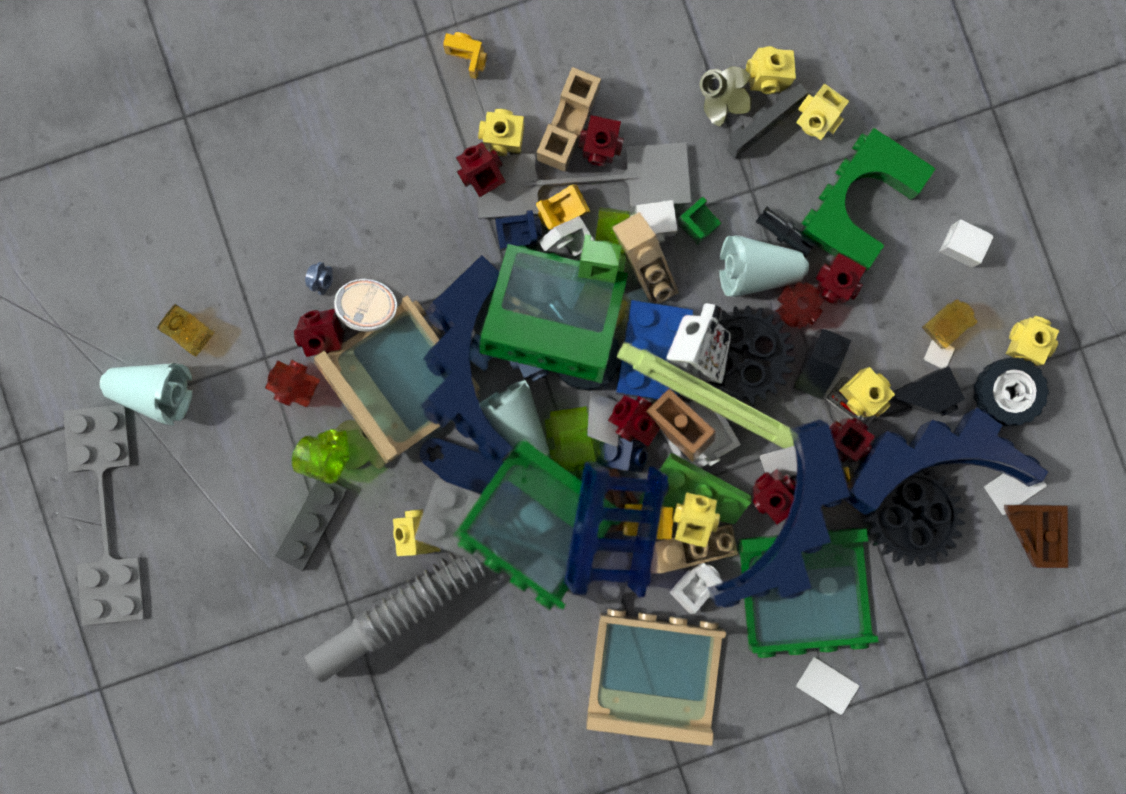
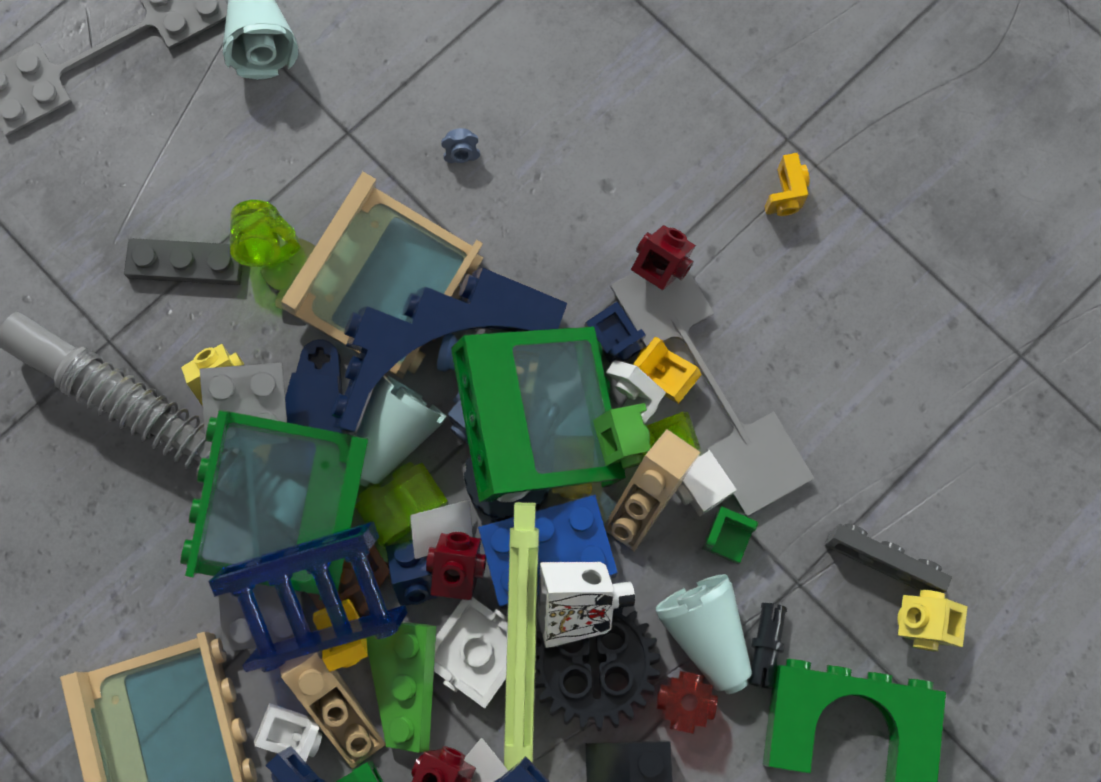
camera: 65 degrees right, 10 degrees down
(185, 329) = (340, 35): clear yellow bracket -> none
(291, 383) = (328, 167): clear red brick -> none
(319, 332) = (398, 171): dark red brick -> none
(365, 305) = (452, 206): piece -> none
(511, 126) = (719, 265): light yellow brick -> none
(570, 118) = (792, 331): tan arch -> none
(604, 131) = (776, 373): dark red brick -> none
(682, 425) = (471, 621): medium nougat slope -> none
(696, 519) = (373, 690): light yellow brick -> none
(730, 95) = (894, 501): olive plate -> none
(771, 70) = (949, 535): light yellow brick -> none
(848, 274) = (755, 743): dark red brick -> none

